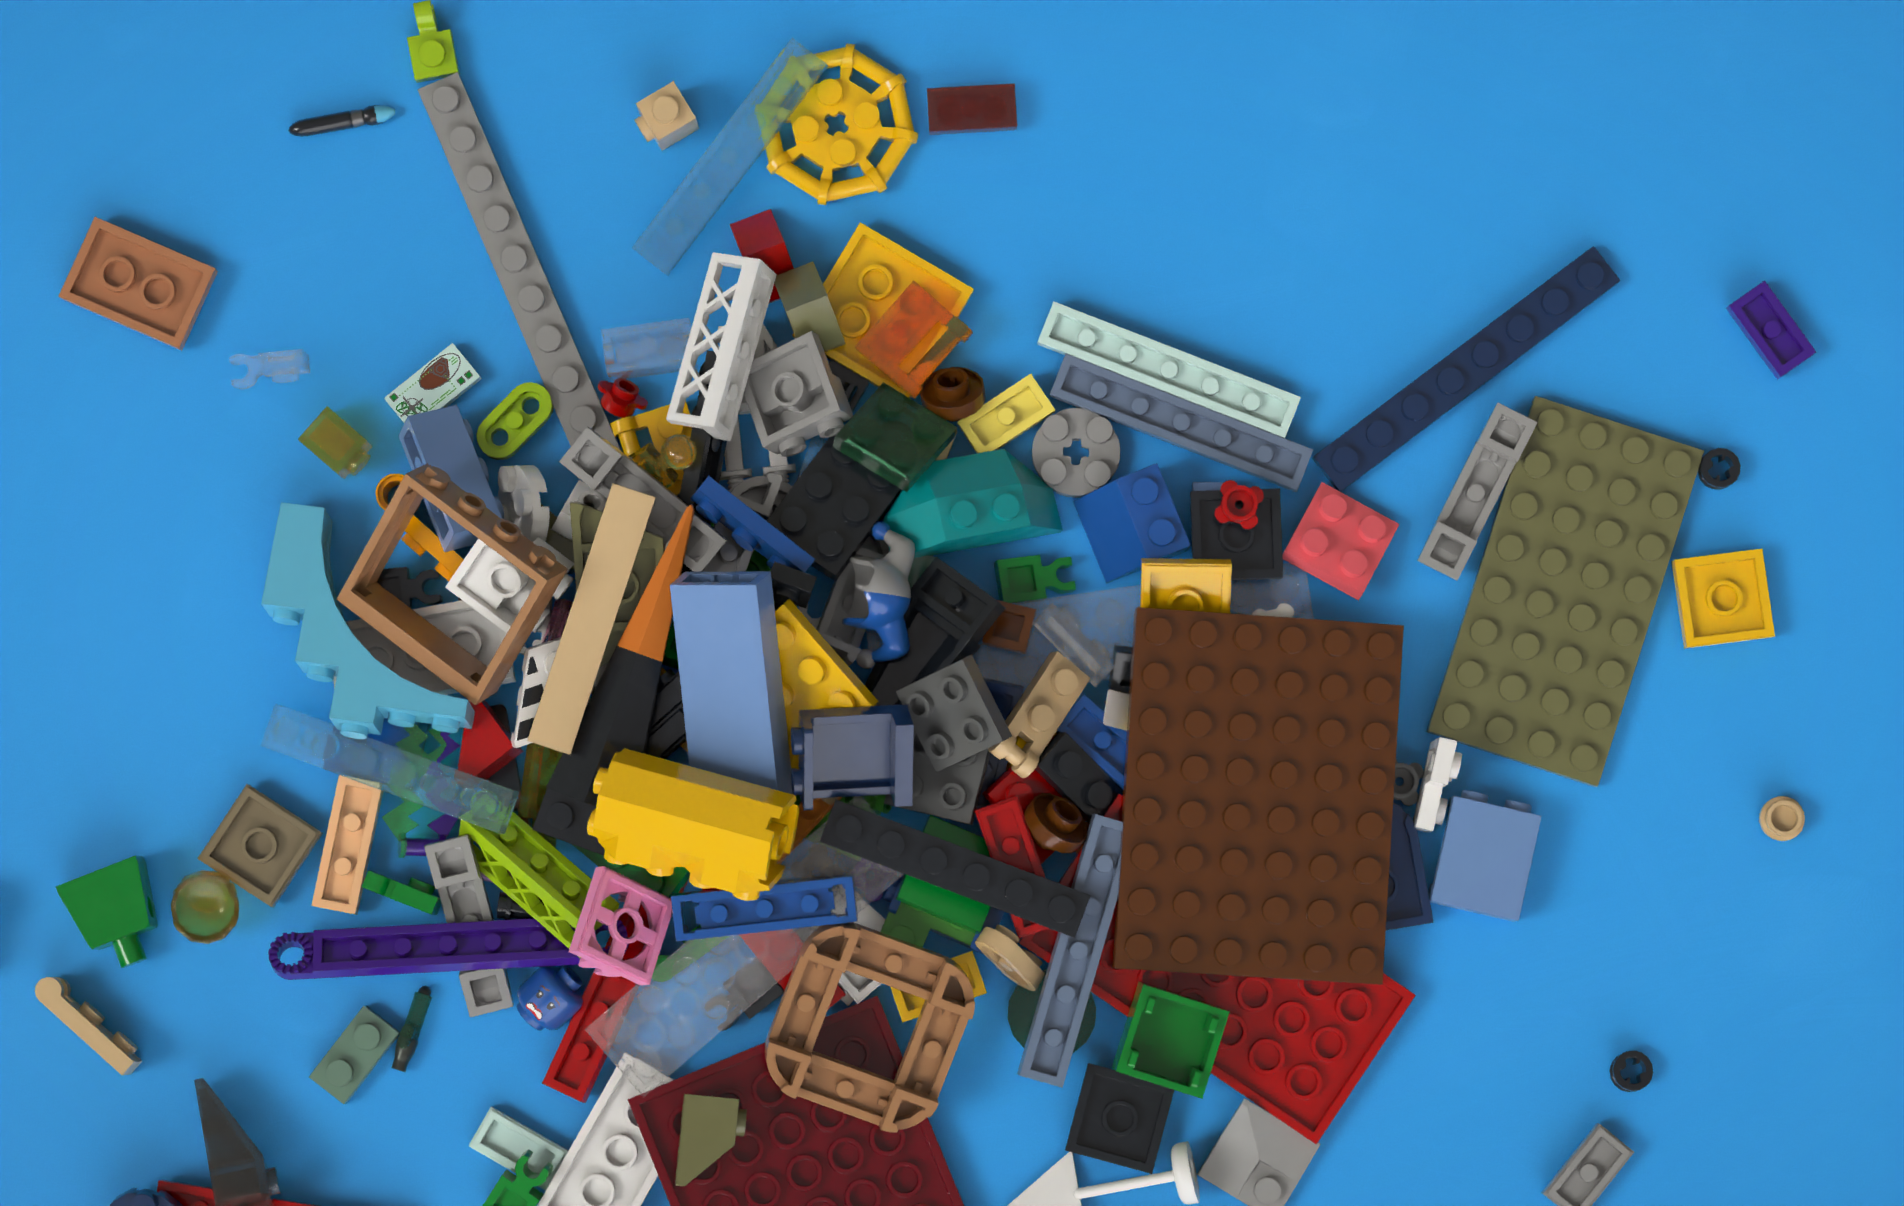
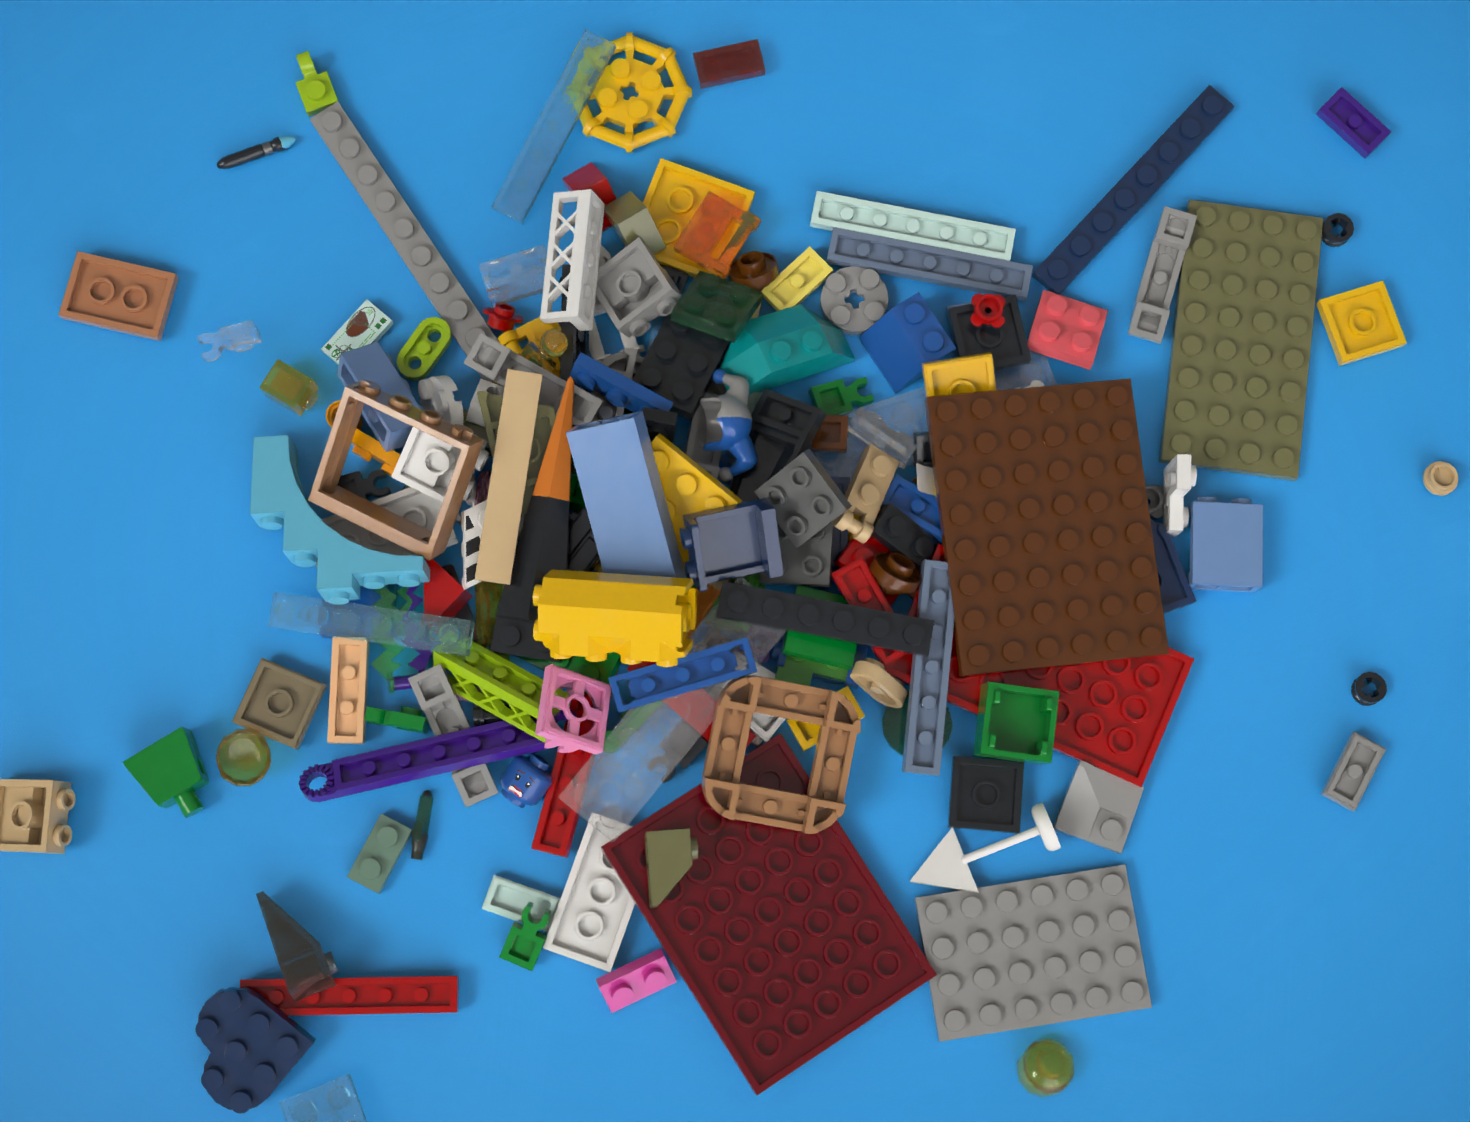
camera: 15 degrees left, 5 degrees down
(86, 1023) = (165, 866): tan plate -> none
(665, 117) = (500, 105): tan brick -> none

